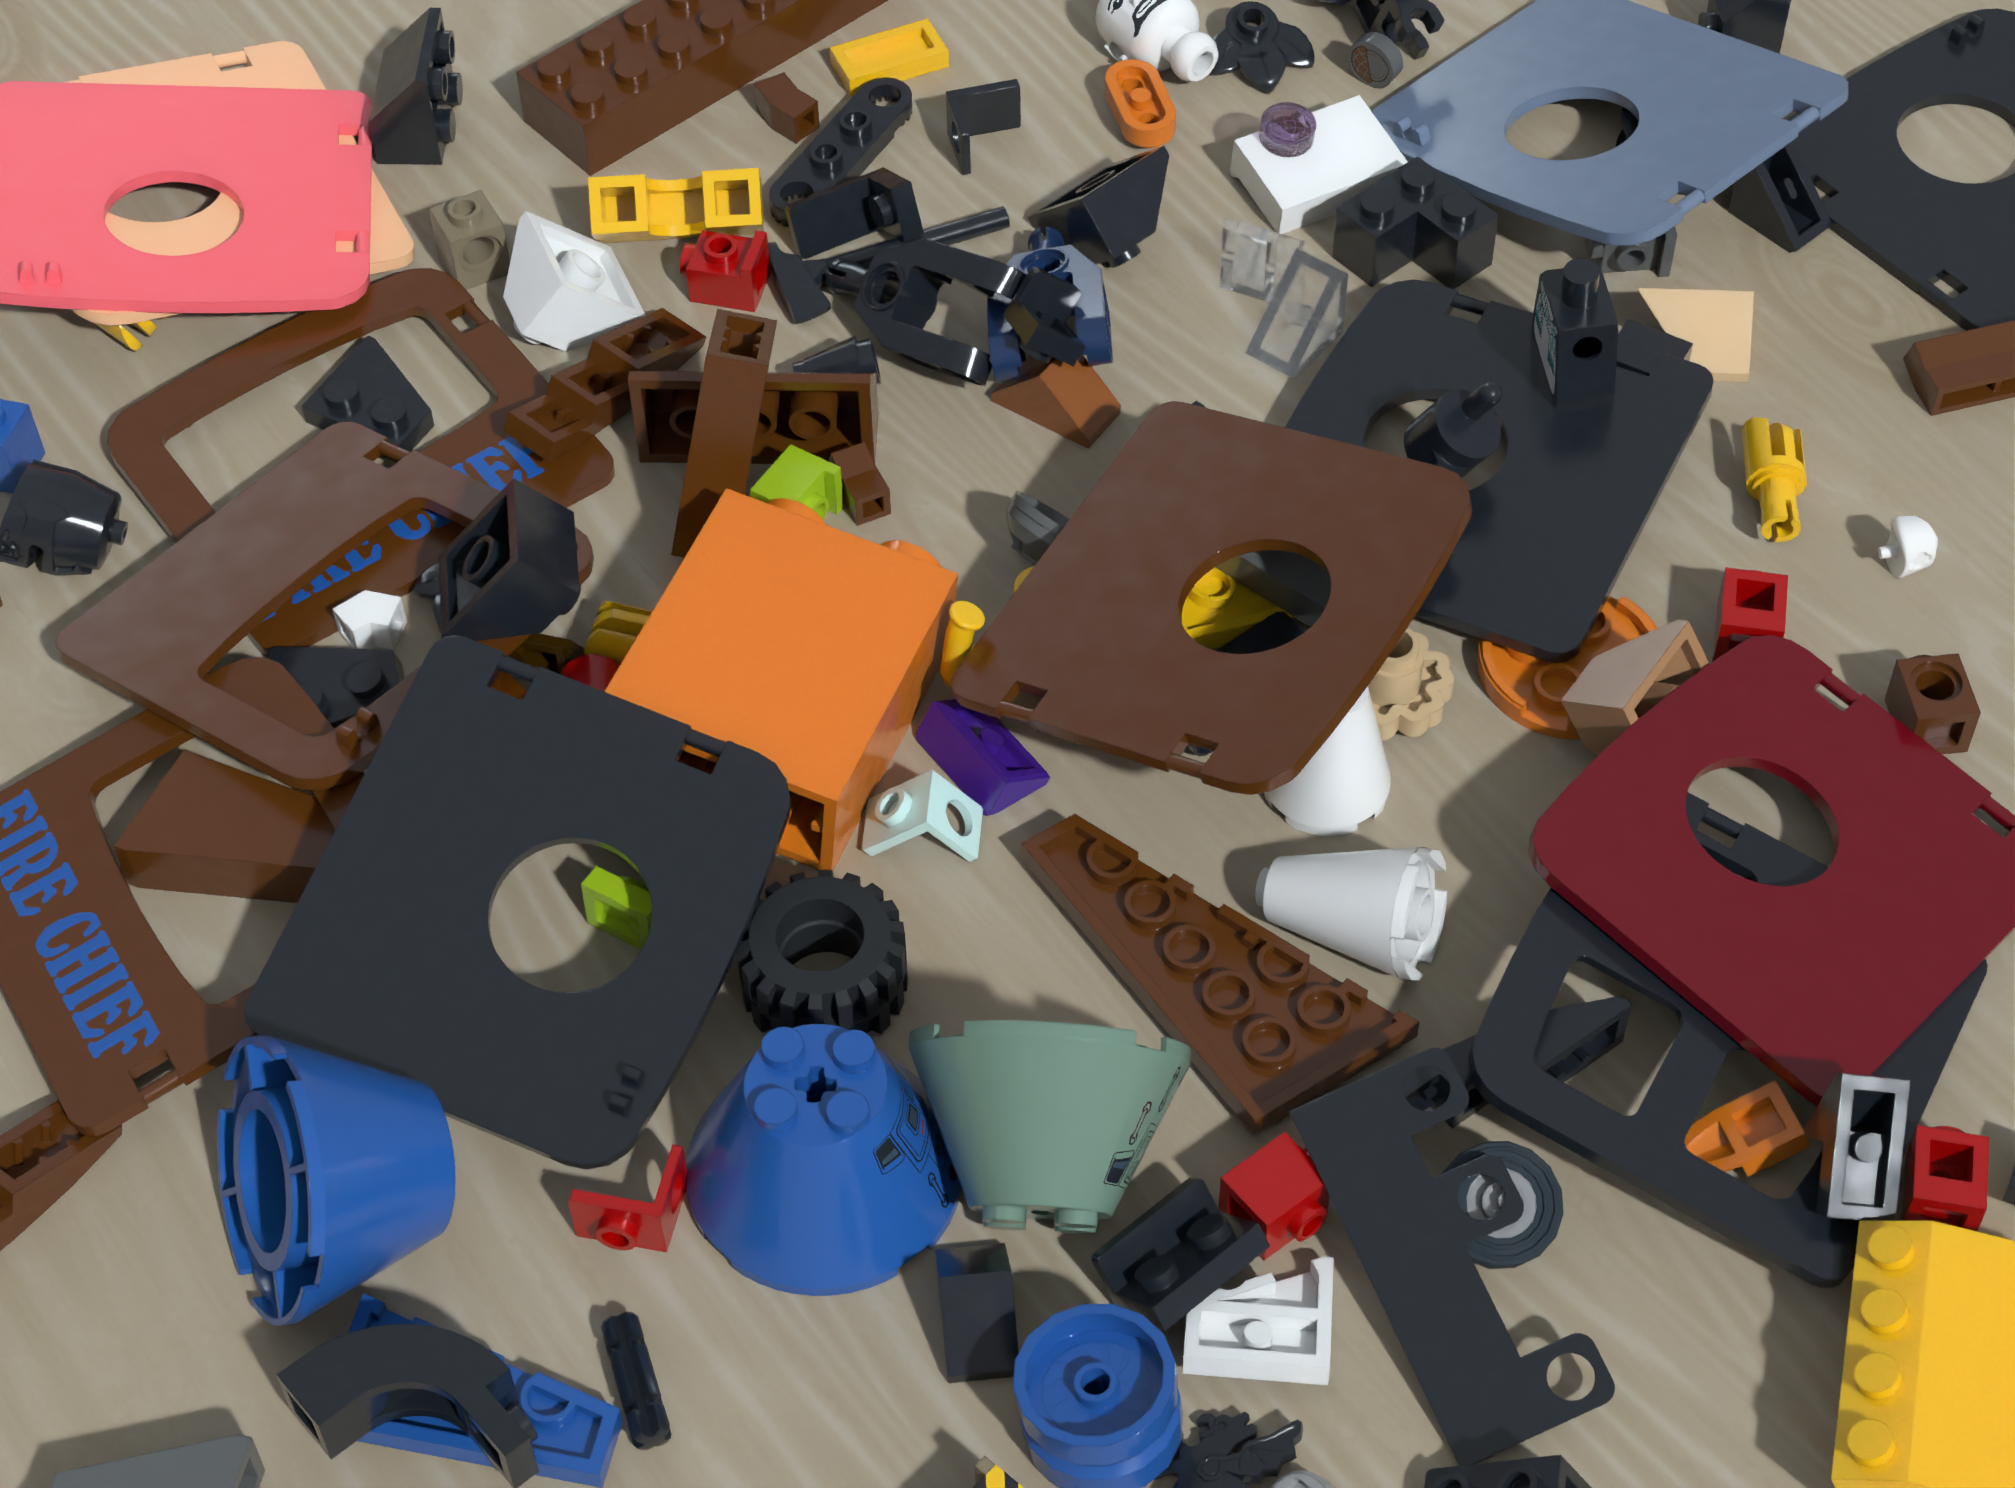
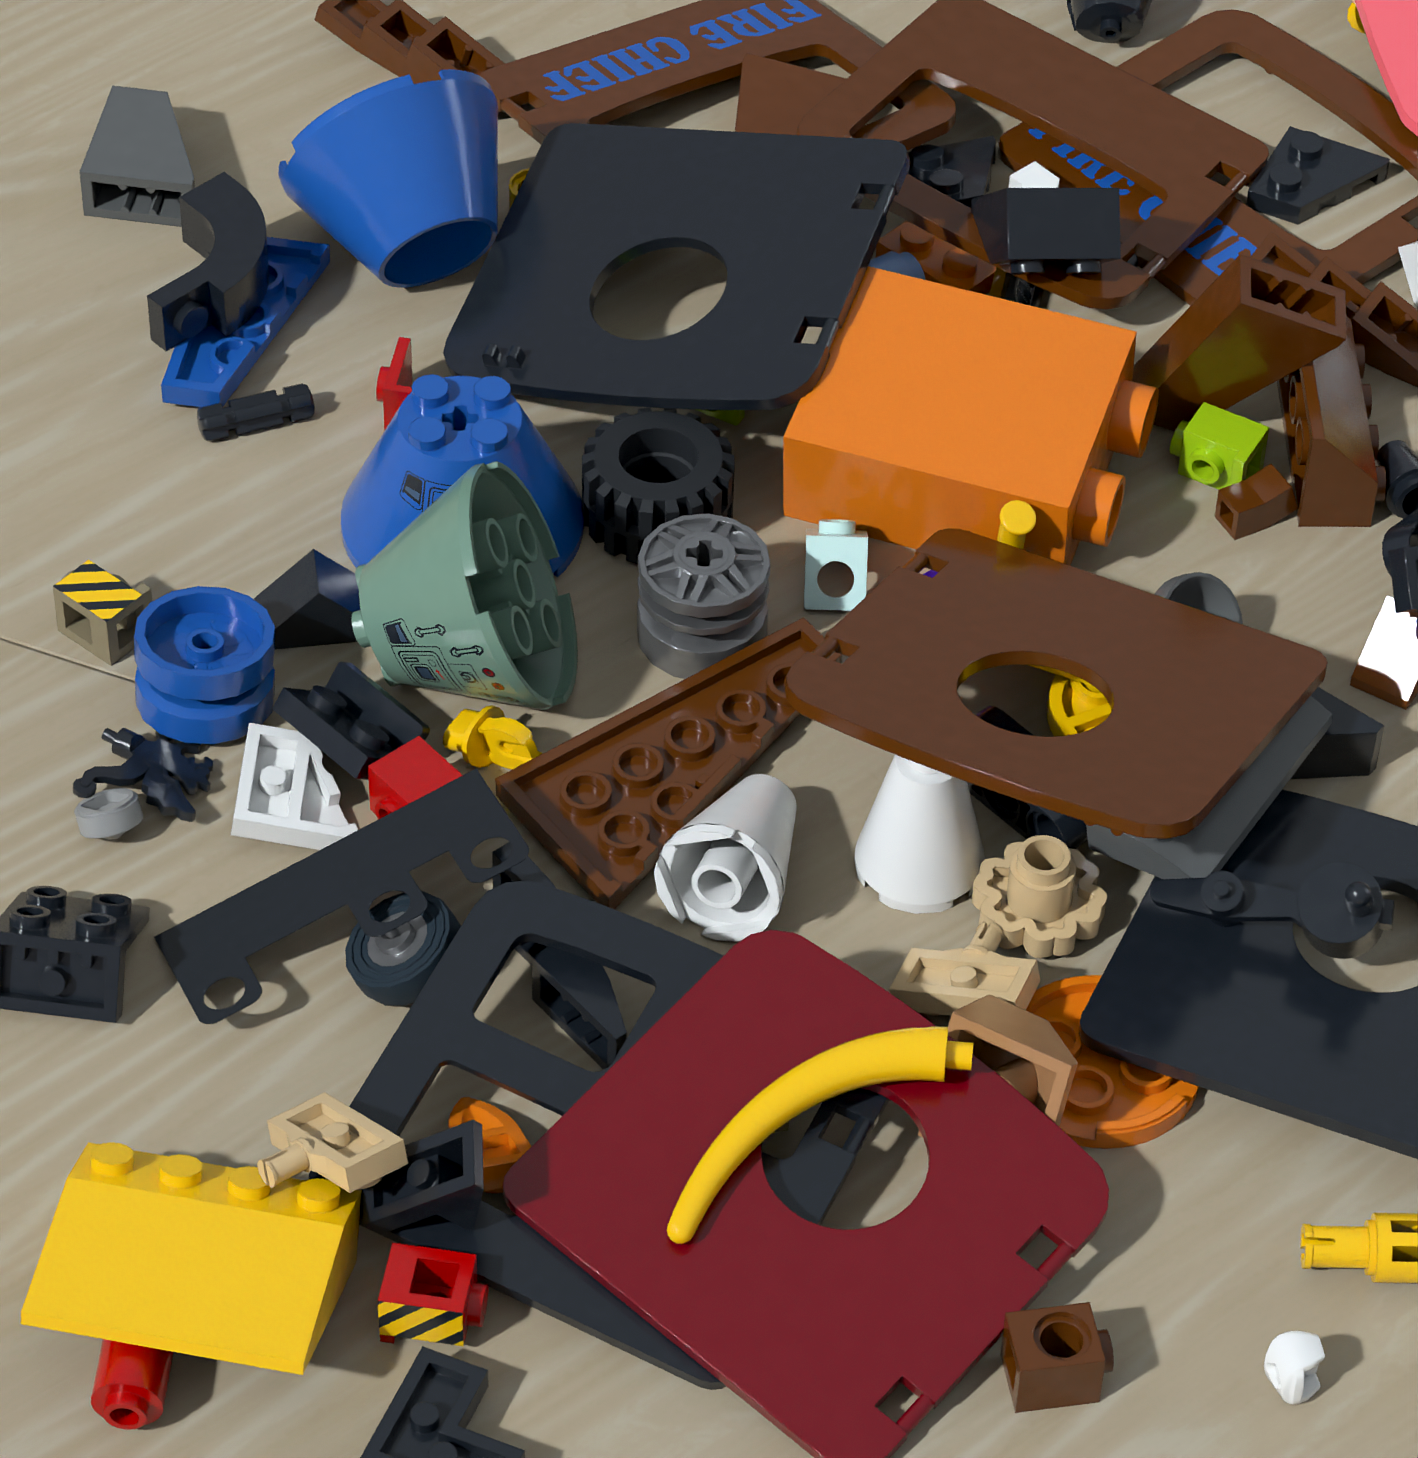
camera: 85 degrees right, 5 degrees down
(1005, 919) = (701, 592): none -> flat silver wheel
(1175, 1145) = (490, 738): none -> yellow piece
(1506, 737) = (949, 979): none -> tan plate
(1684, 773) = (862, 1062): none -> yellow animal
(1749, 606) = (1163, 1200): red brick -> none
(1836, 1230) = (333, 1142): none -> tan plate

